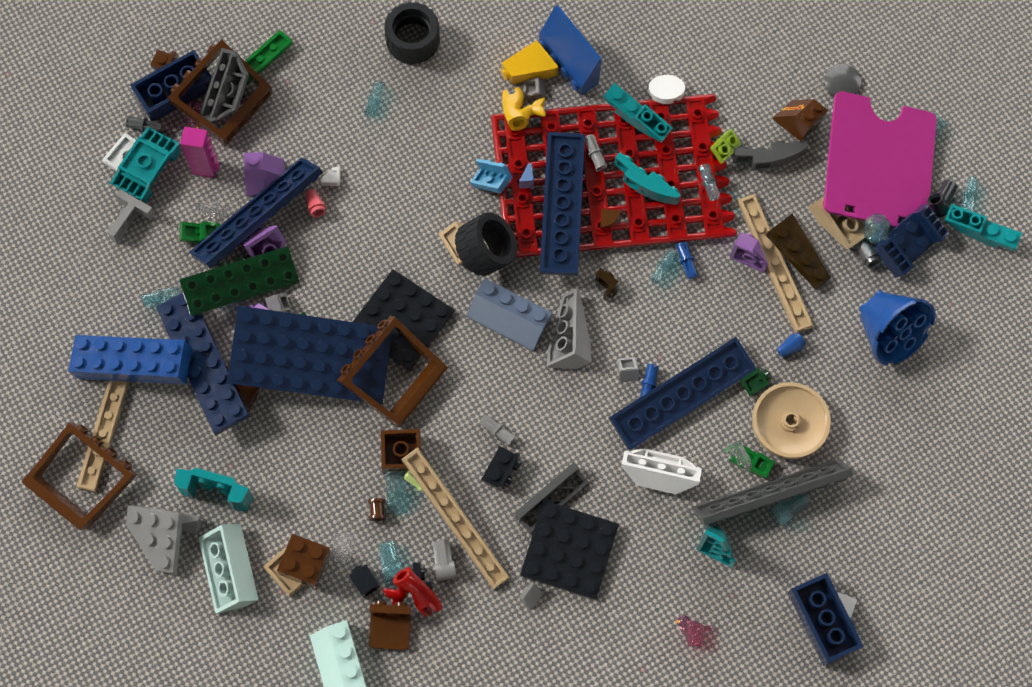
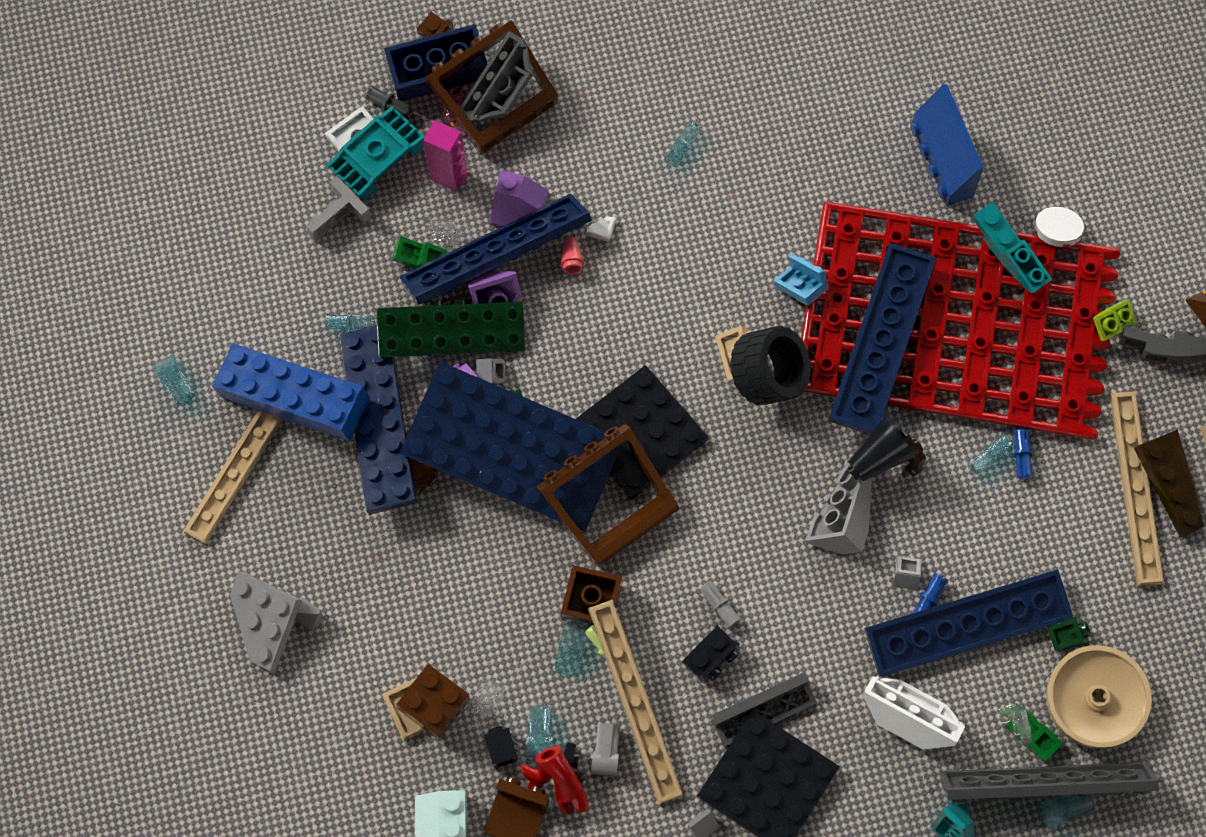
camera: 20 degrees right, 0 degrees up
(34, 372) = (172, 375): none -> clear light blue piece
(60, 503) = (157, 544): reddish brown windscreen -> none
(188, 481) = (319, 562): teal plate -> none
(228, 568) = (338, 683): light aqua slope -> none
(268, 52) = (566, 50): green plate -> none
(377, 509) = (541, 662): reddish brown bush -> none
(412, 14) = (756, 46): black tyre -> none
(509, 314) = (775, 462): sand blue slope -> none
(517, 118) = (854, 194): yellow piece -> none
(527, 178) = (847, 294): medium blue slope -> none
(529, 64) = (890, 150): yellow slope -> none
(534, 88) = (889, 182): light grey slope -> none
(585, 284) = (881, 451): none -> black cone
(595, 153) = (943, 285): light grey axle -> none
(608, 217) = (937, 373): reddish brown tile -> none
(650, 185) = (1003, 347): teal slope -> none
(709, 182) = (1079, 361): clear light blue axle -> none
(749, 252) = (1106, 464): medium lavender slope -> none
(791, 345) = (1128, 599): blue cone -> none

